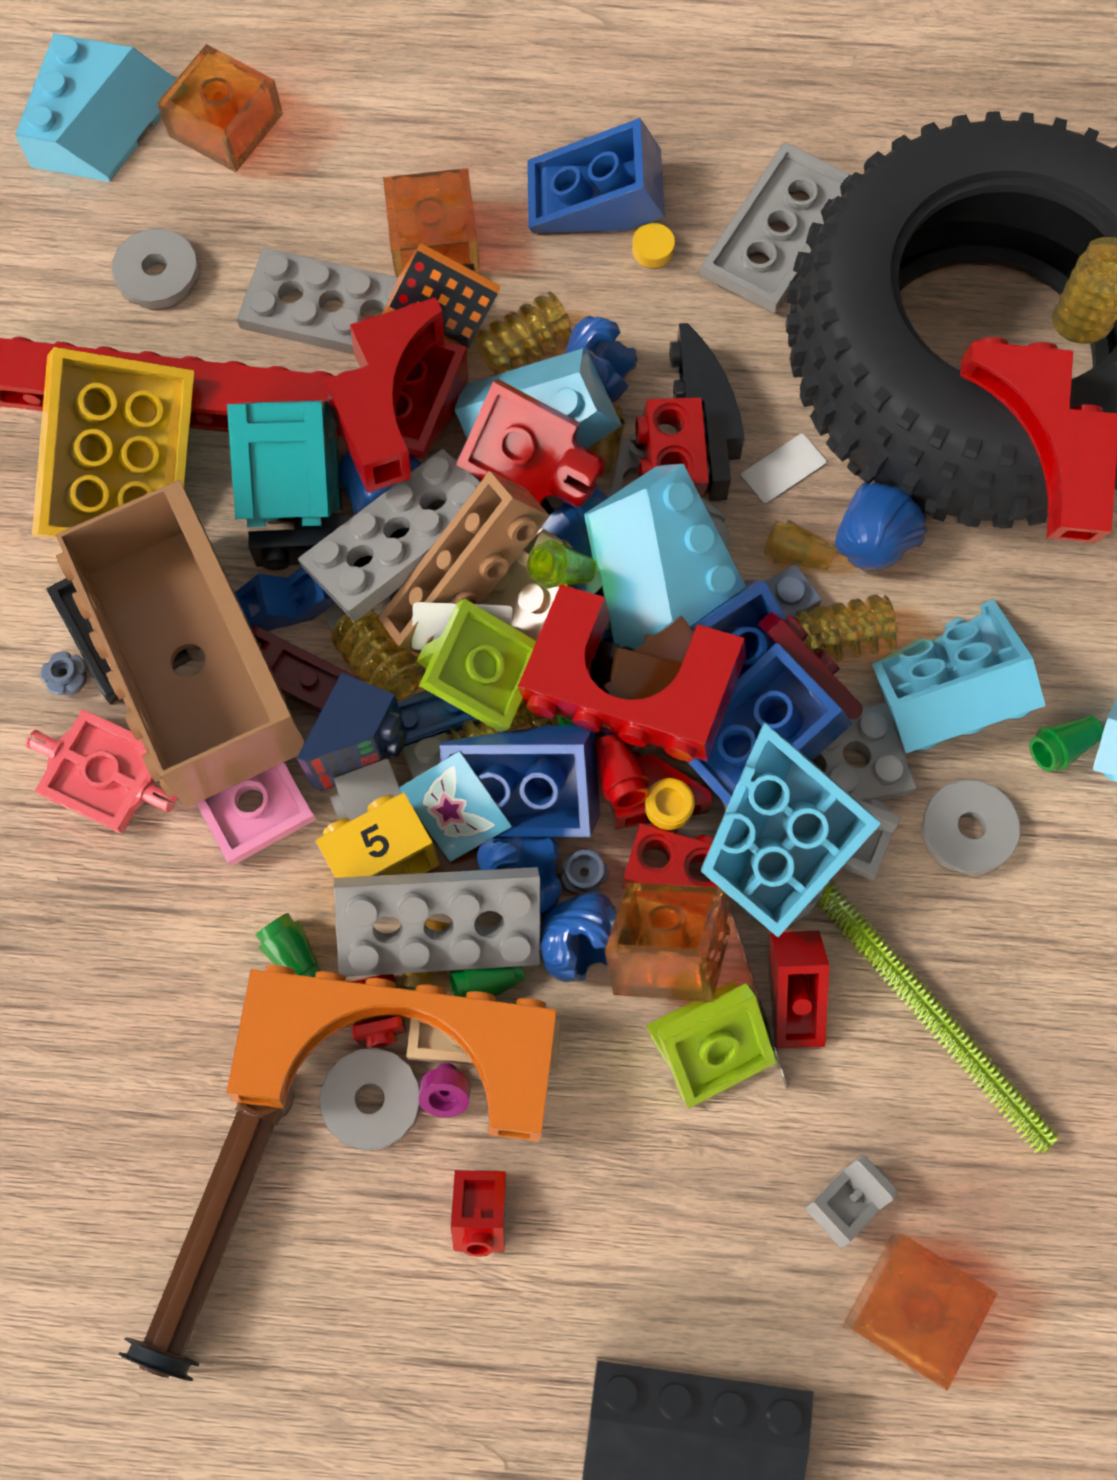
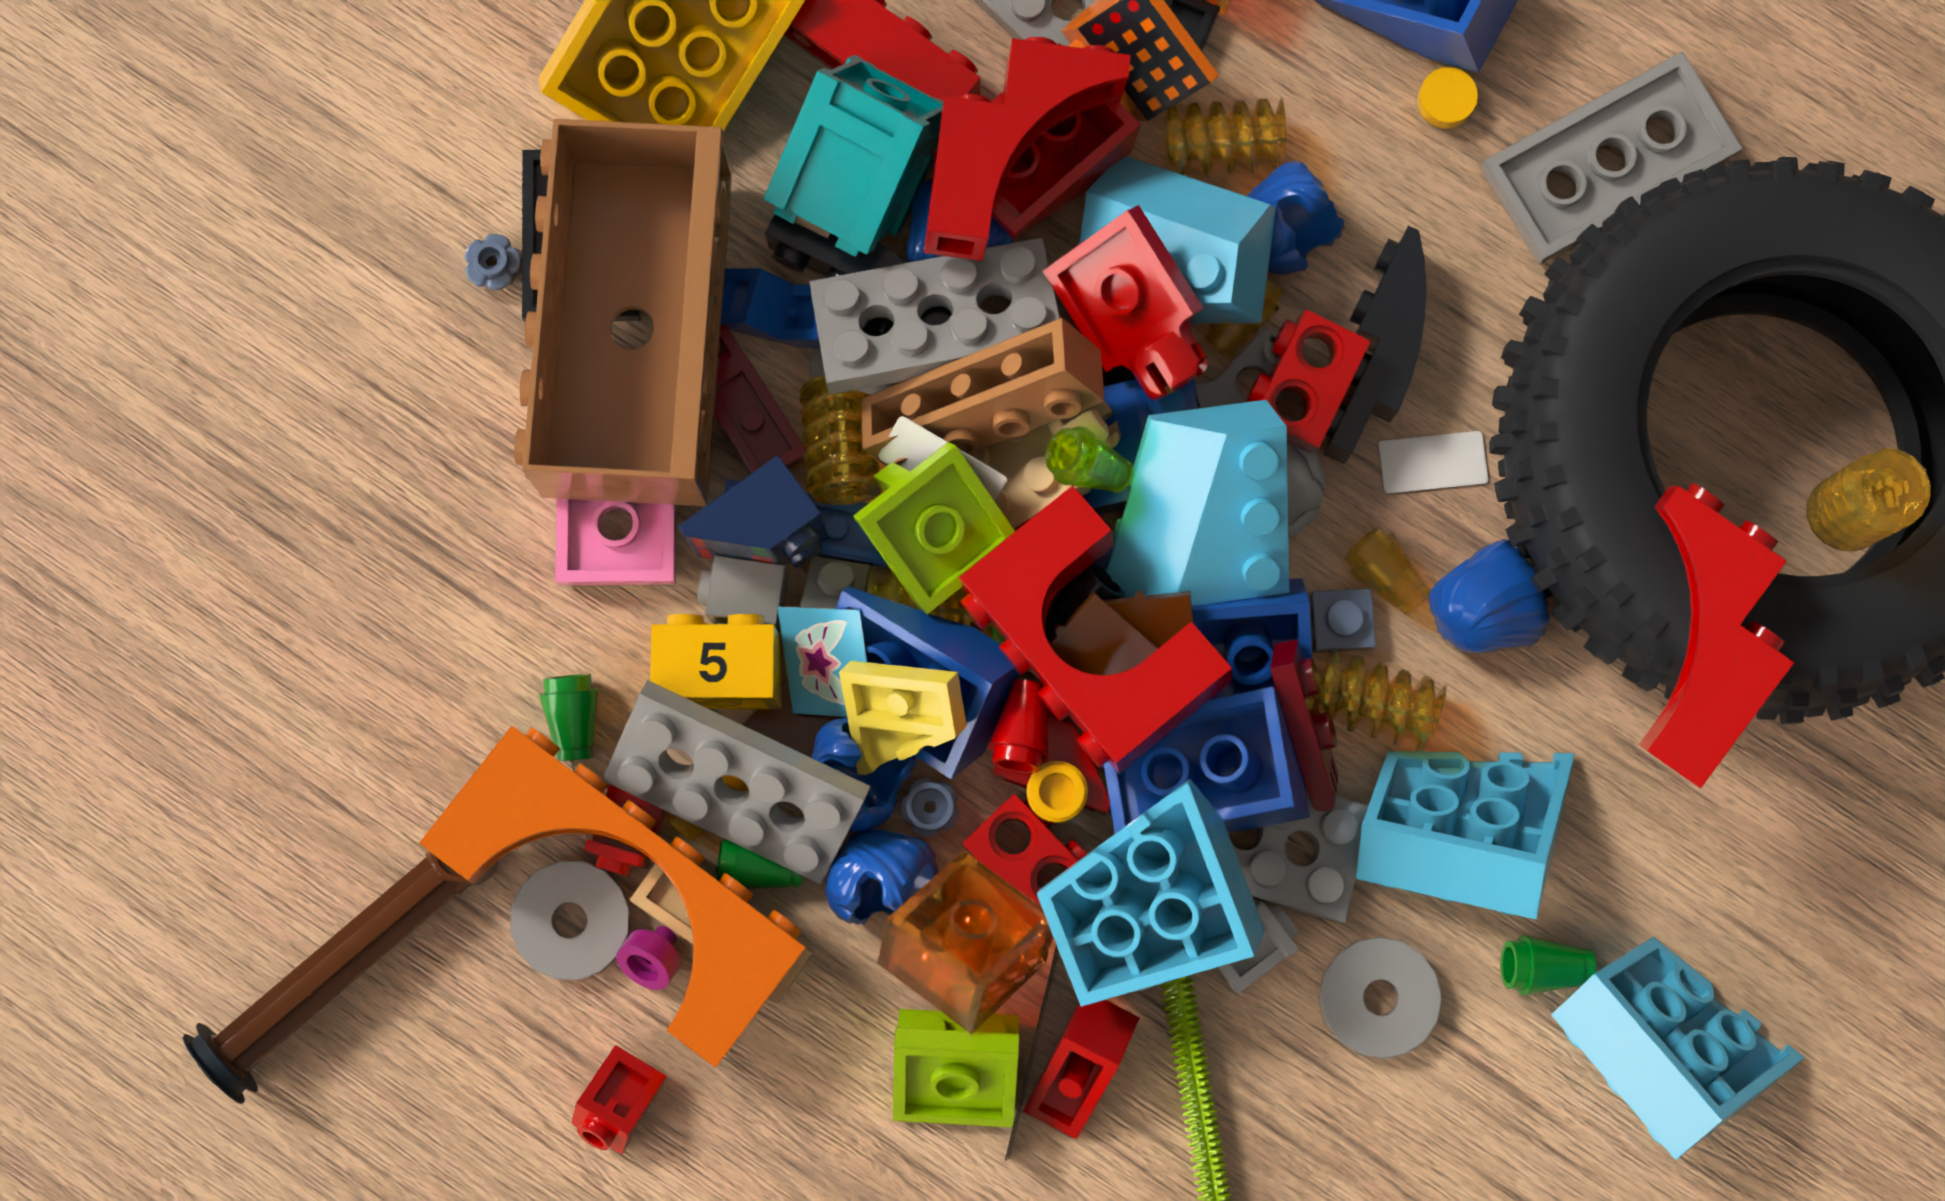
camera: 30 degrees right, 10 degrees up
(97, 772) = (467, 398): coral plate -> none
(528, 803) = (899, 710): none -> light yellow wing

